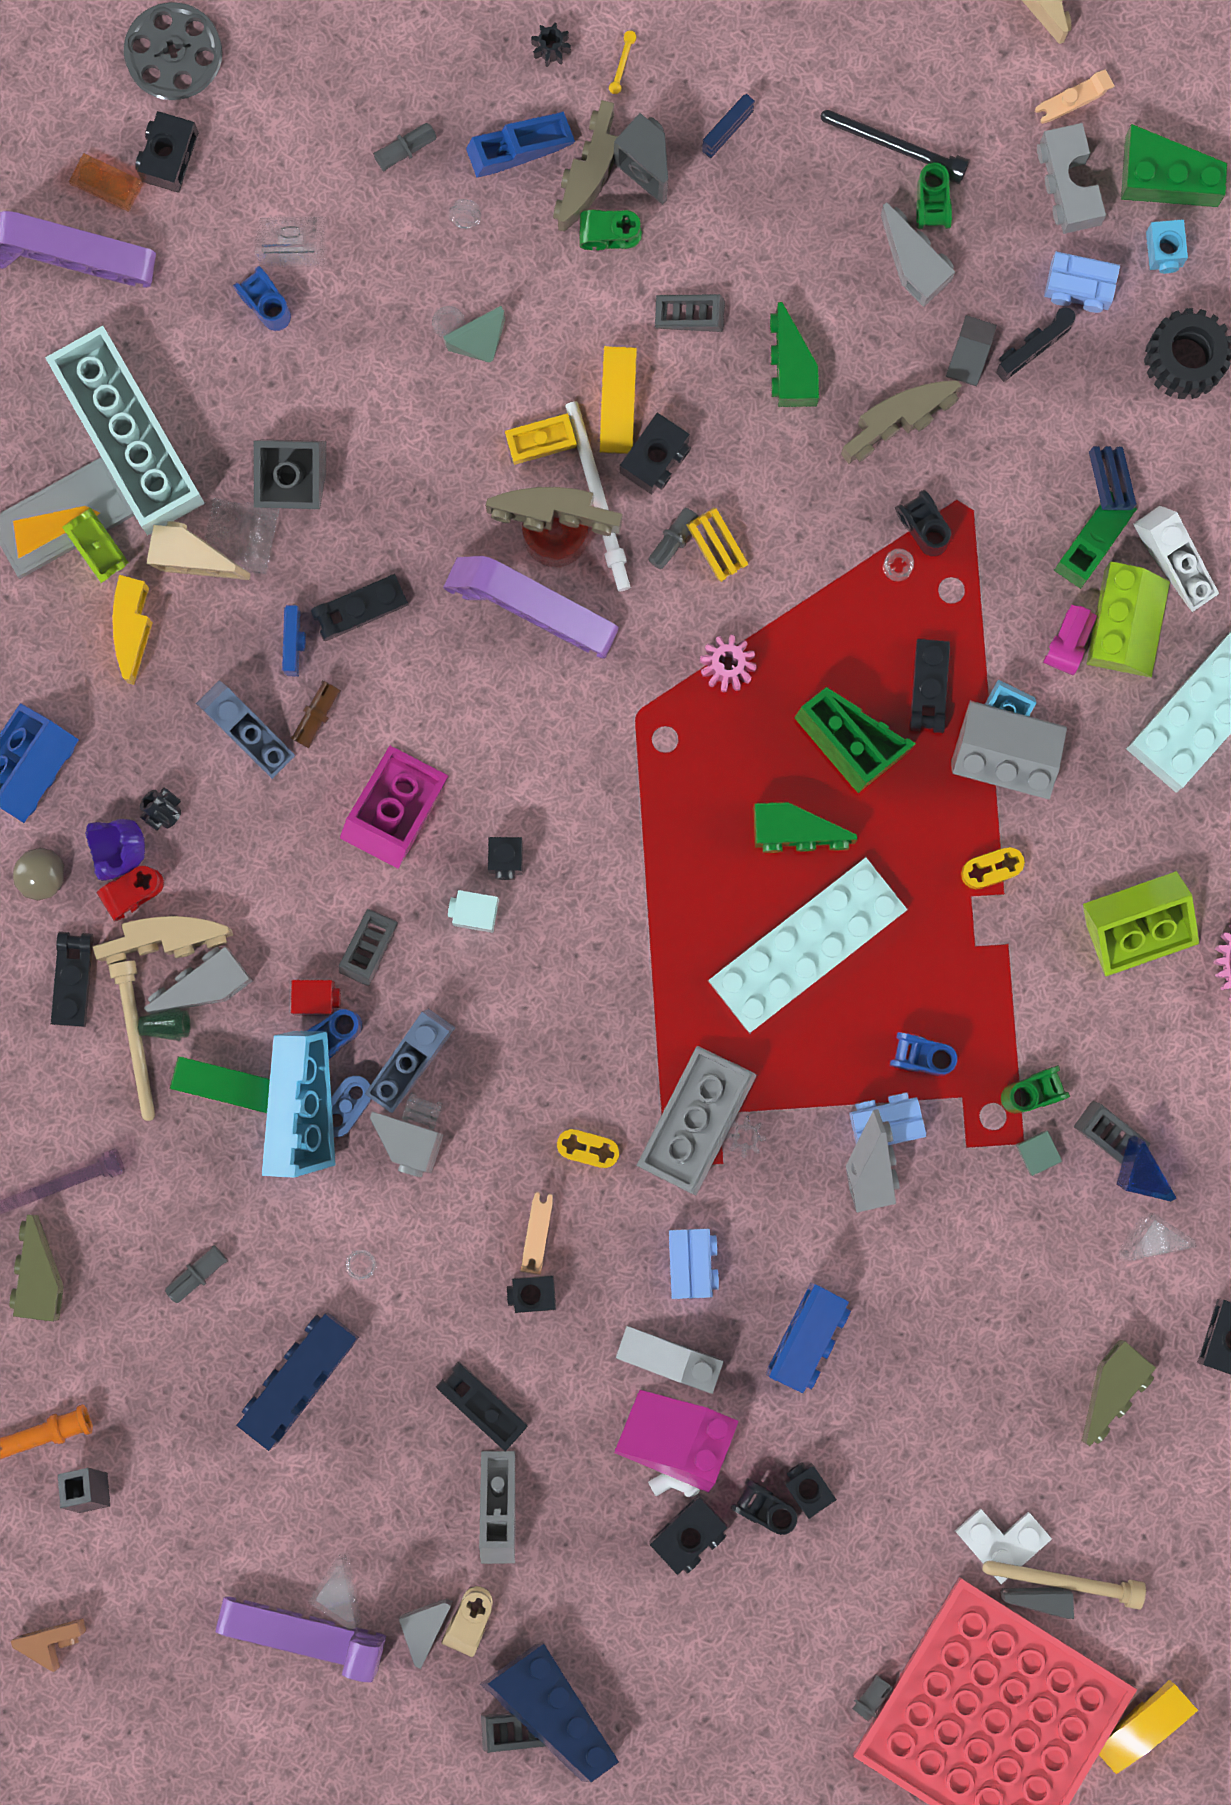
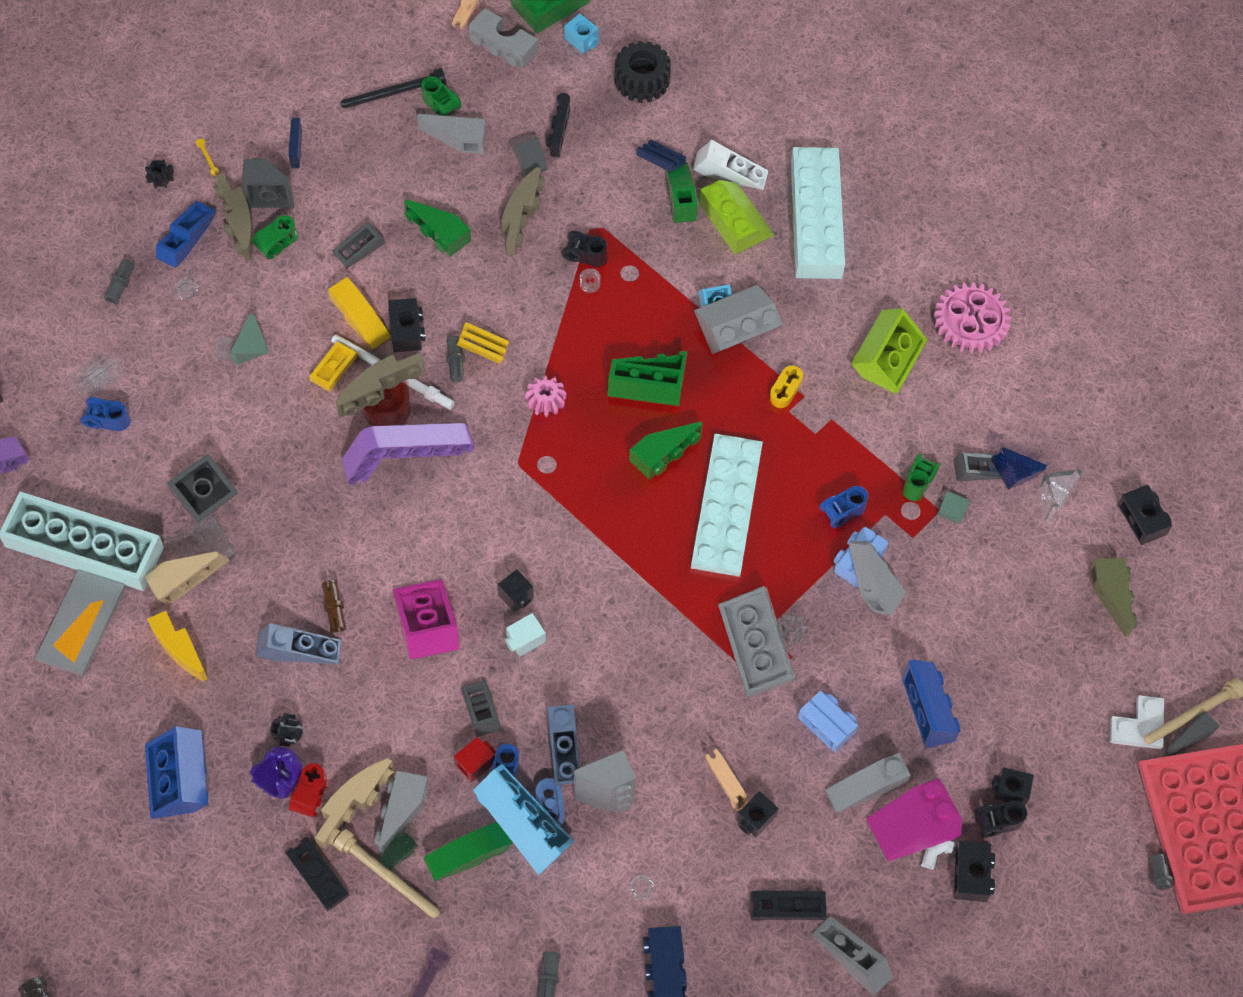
camera: 45 degrees left, 20 degrees down
(38, 874) = (242, 830): dark tan hair -> none
(95, 545) = (116, 618): lime hinge -> none
(292, 641) = (284, 576): blue plate -> none
(360, 607) = (308, 530): black plate -> none
(589, 1140) = (713, 715): yellow beam -> none
(930, 684) = (664, 325): black plate -> none
(1068, 646) = (717, 250): dark pink piece -> none
(1081, 282) = (554, 79): light blue brick -> none

